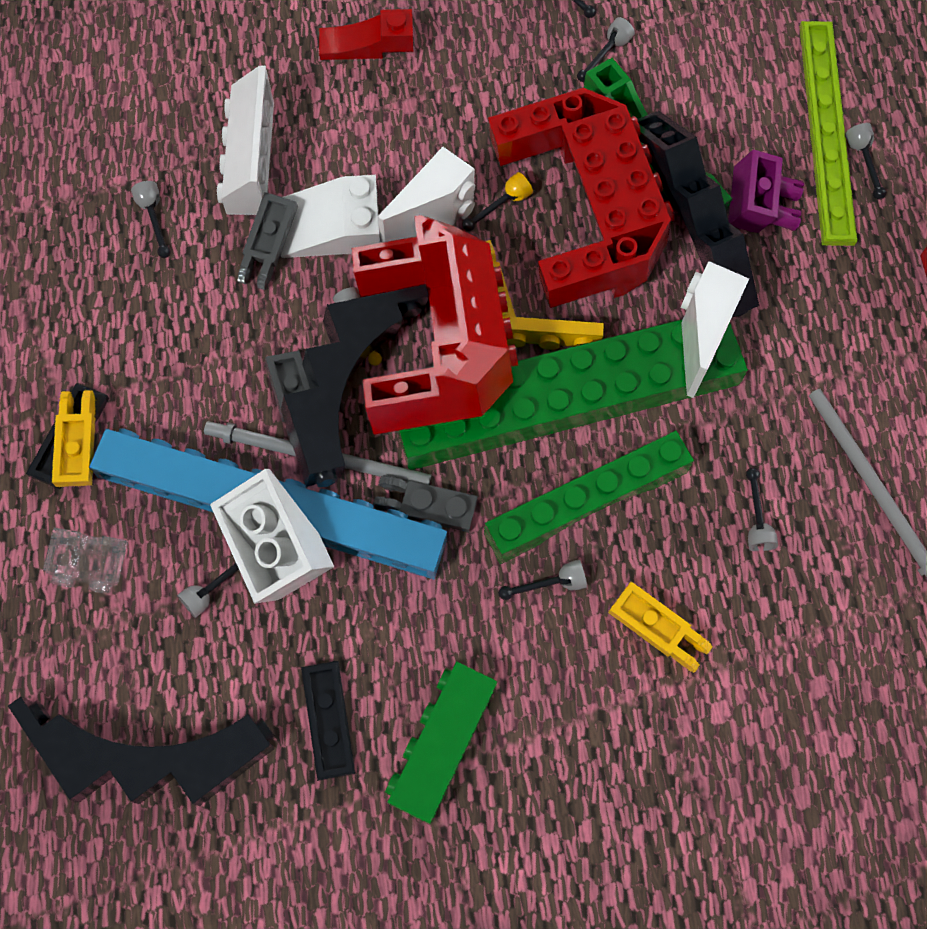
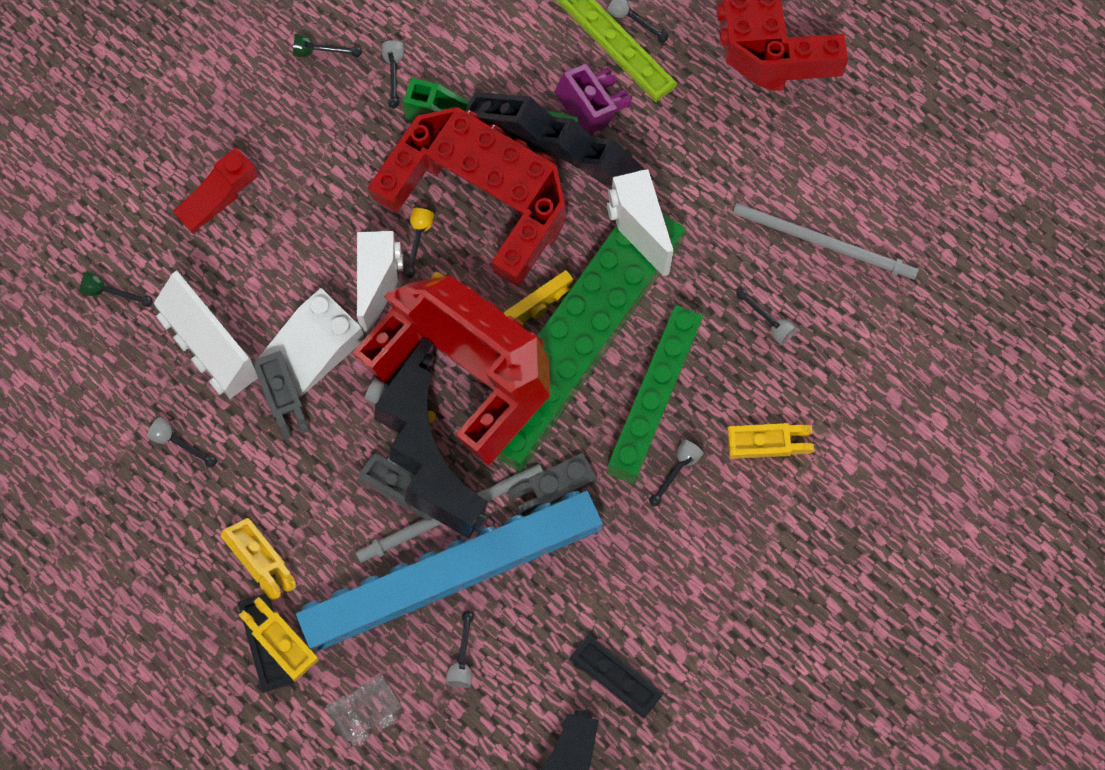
camera: 40 degrees left, 0 degrees up
(125, 358) = (258, 558): none -> yellow hinge
(203, 40) = (93, 285): none -> hinge
(270, 538) = (477, 590): white slope -> none
(442, 742) = (701, 626): green brick -> none

